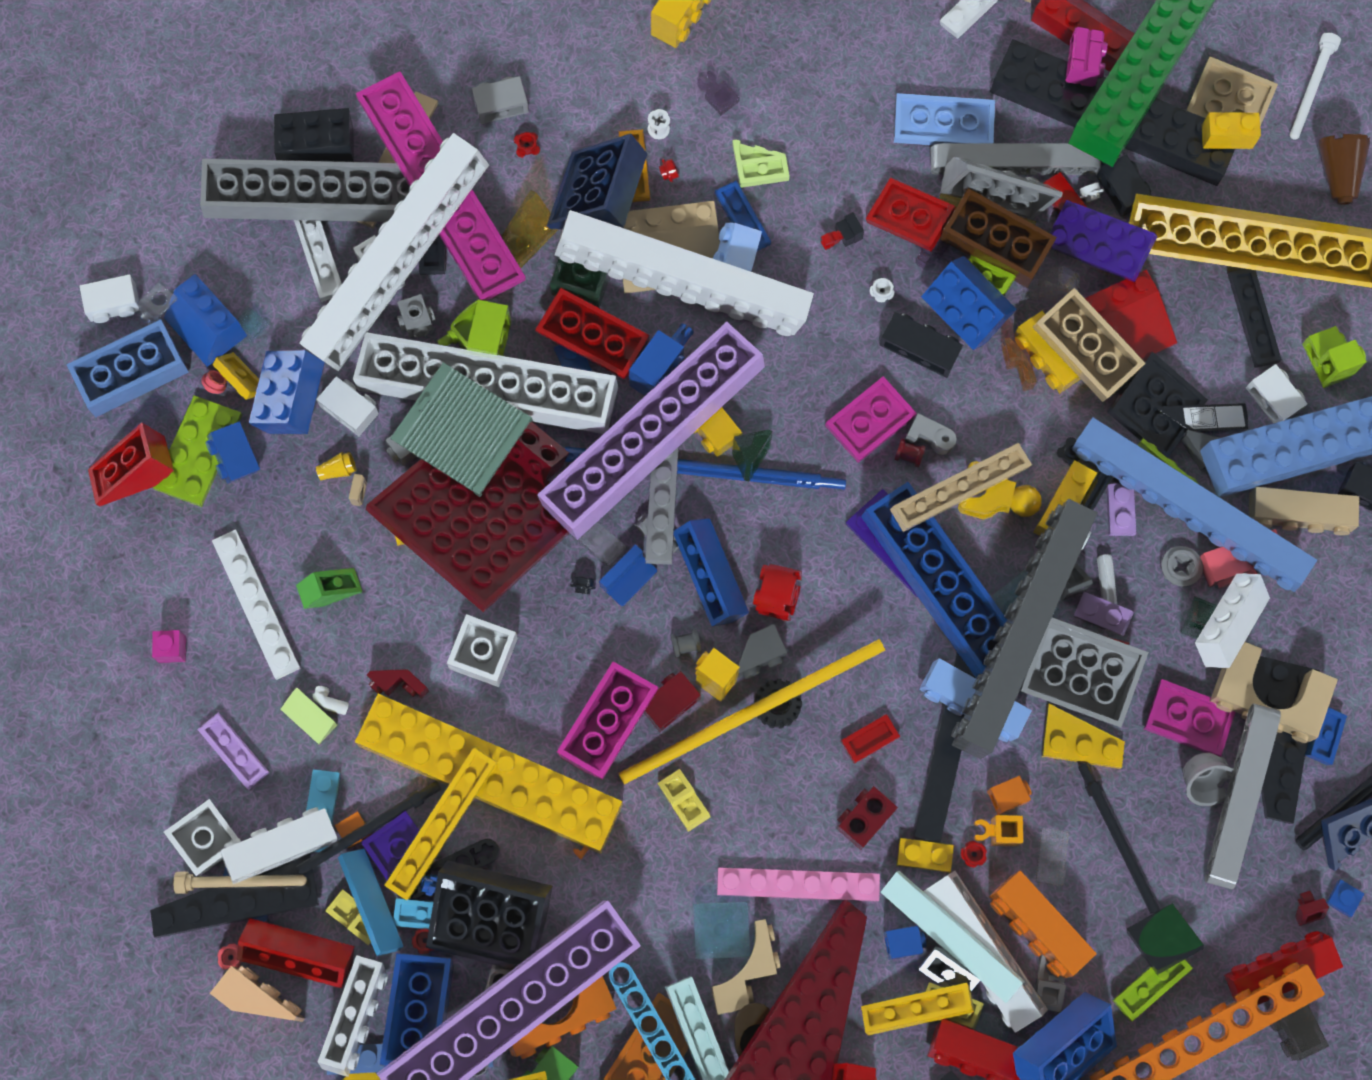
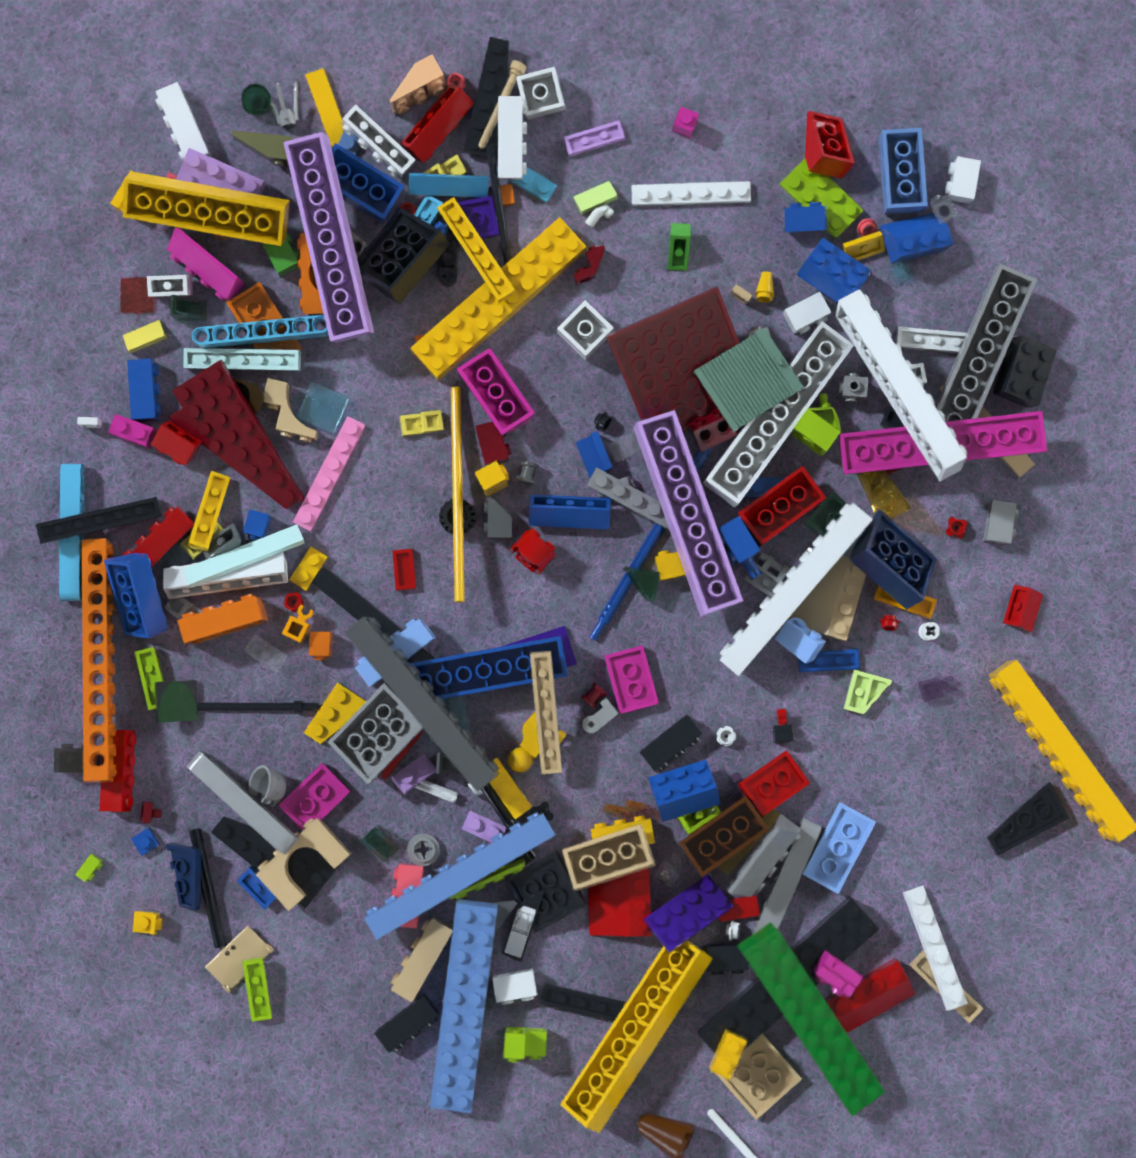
camera: 120 degrees right, 10 degrees up
(585, 41) = (1023, 607): none -> red panel
(684, 313) = (766, 581): none -> light grey plate
(871, 821) = (347, 541): dark red brick -> none
(1232, 620) = (363, 857): white brick -> none

